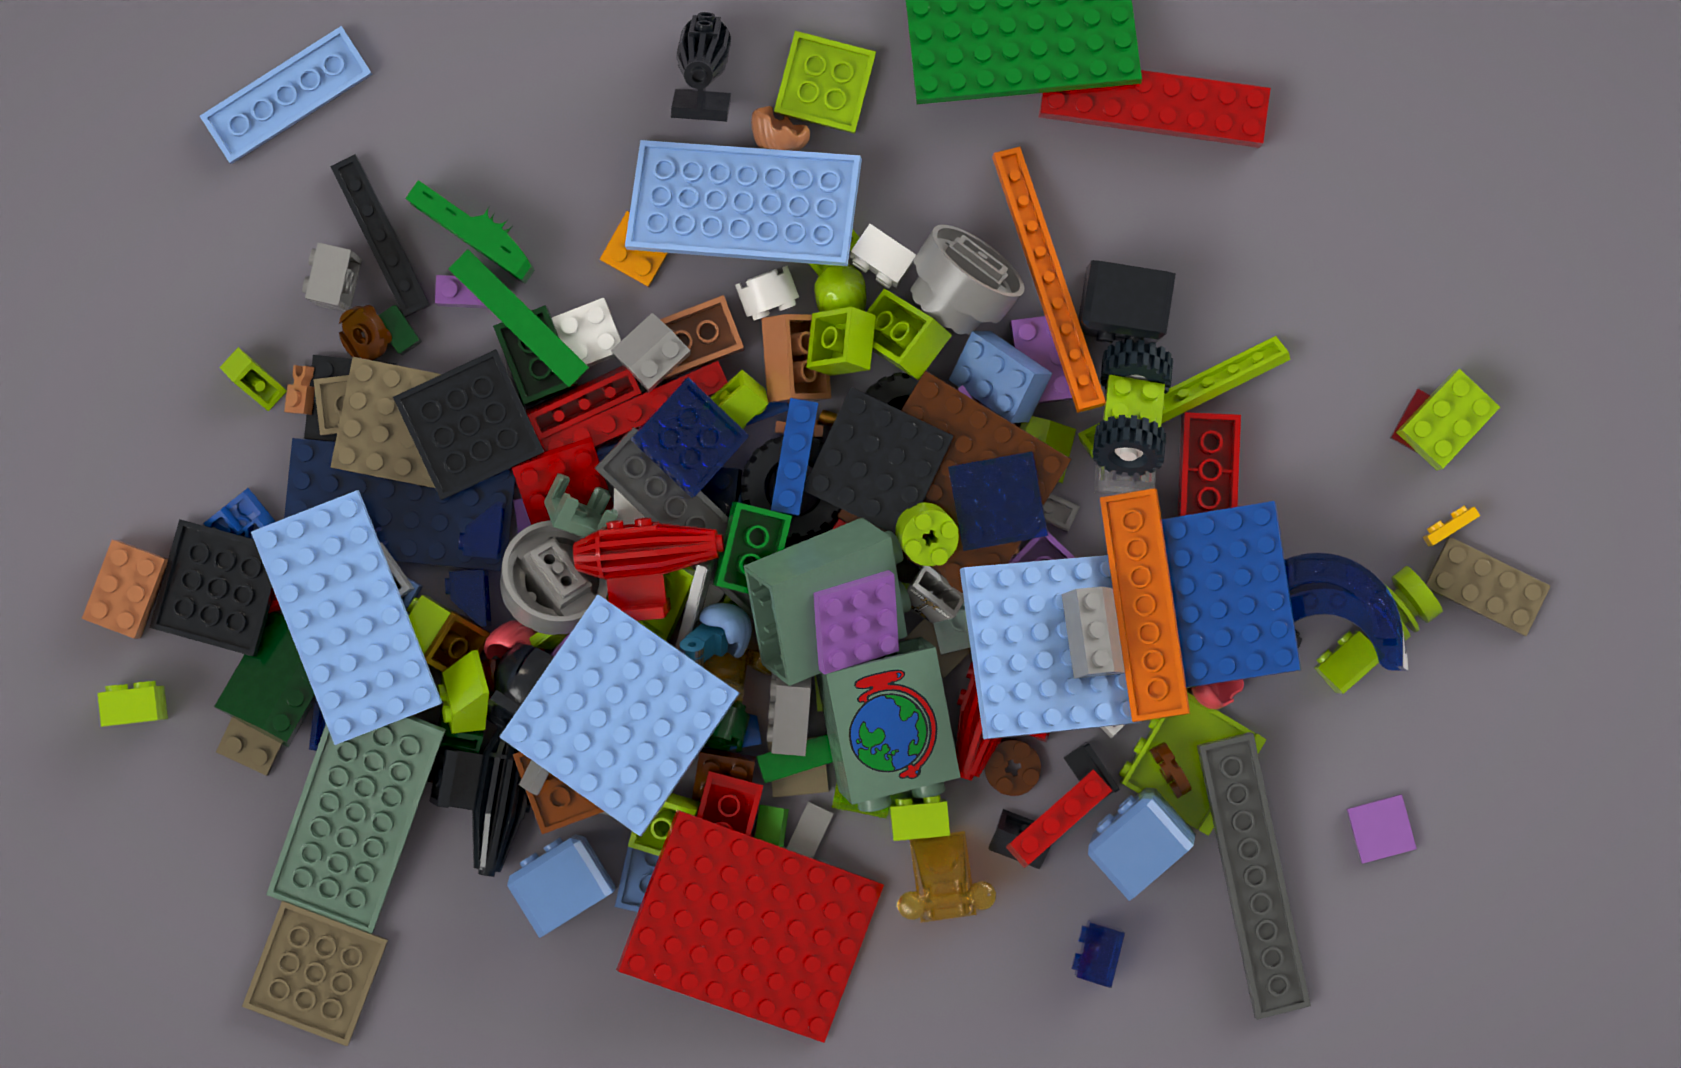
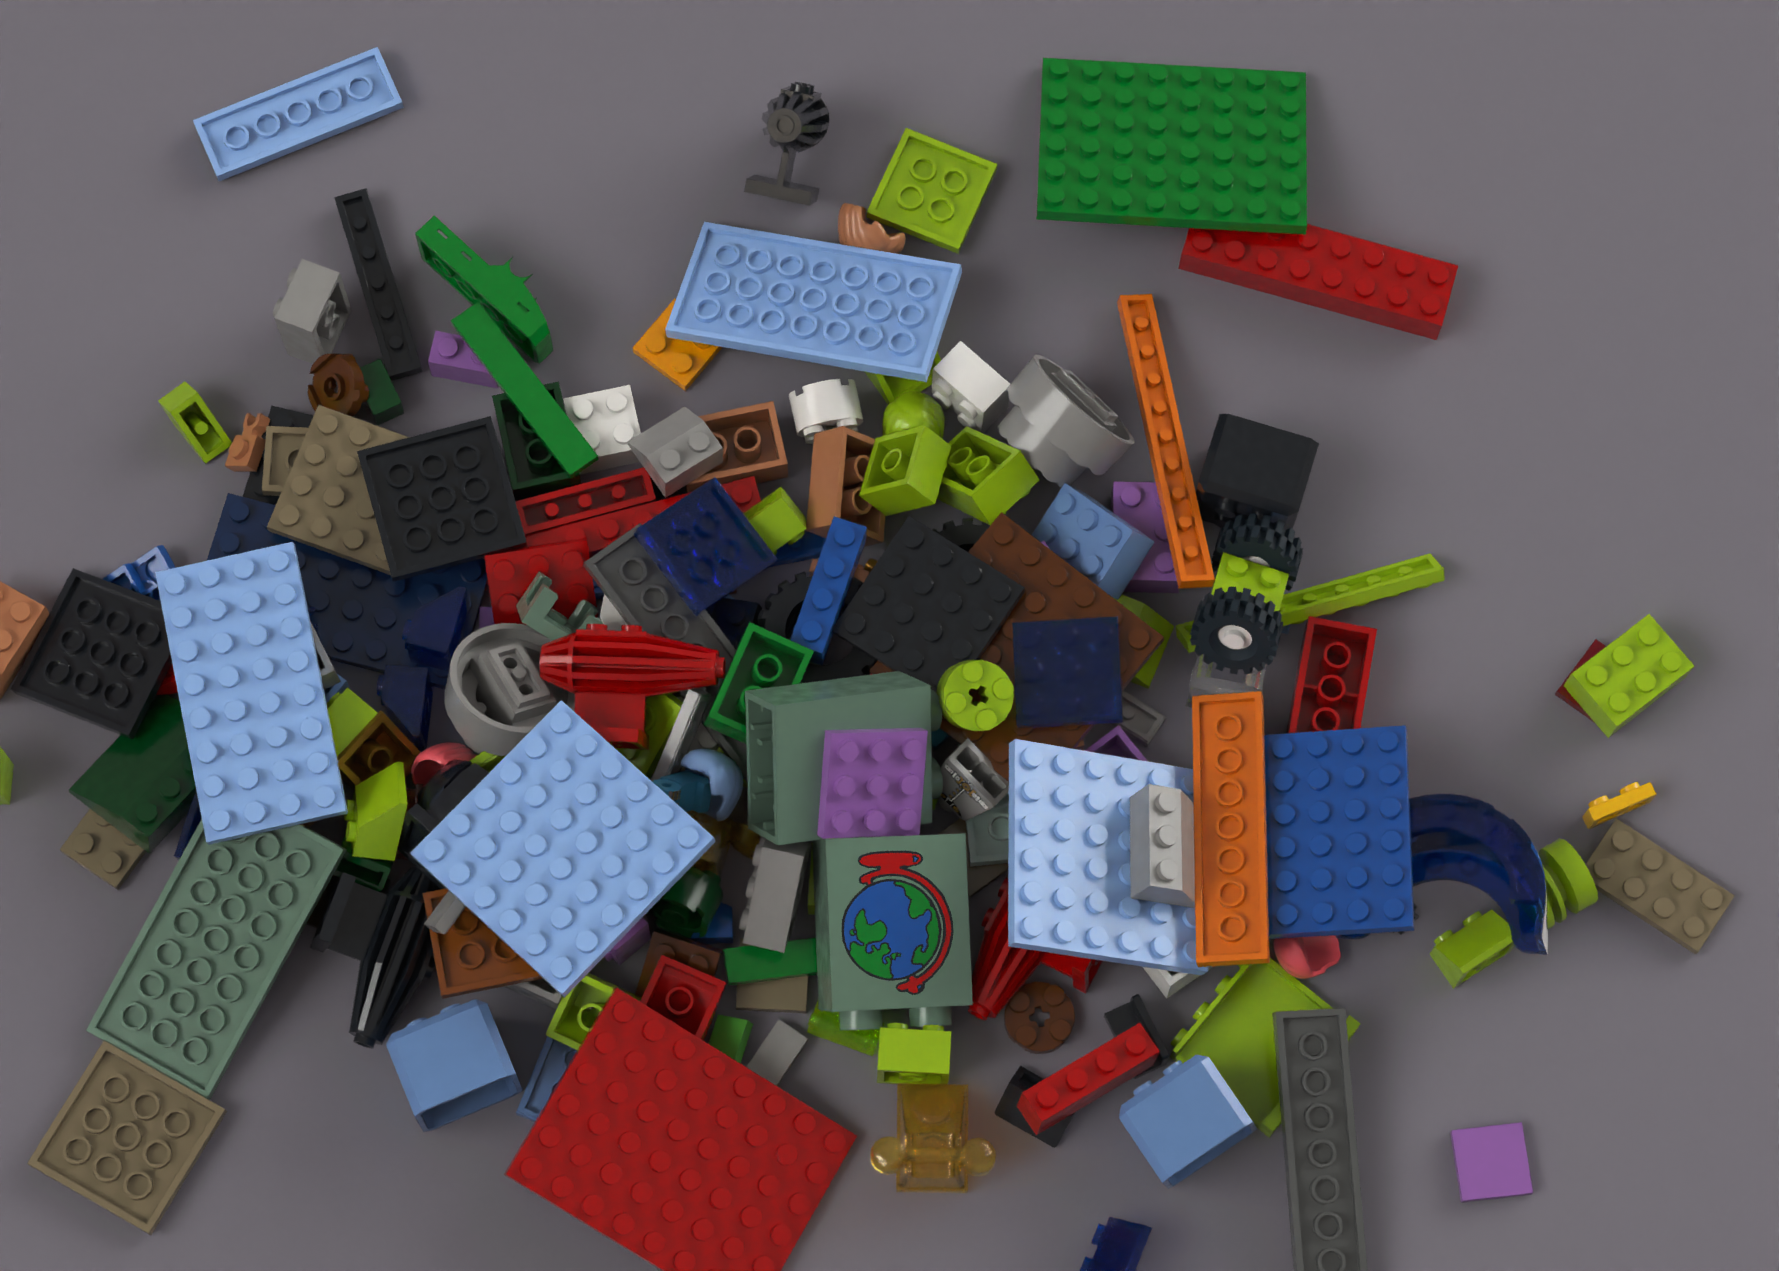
camera: 10 degrees right, 15 degrees down
(1170, 770) = (1239, 1042): reddish brown plate -> none

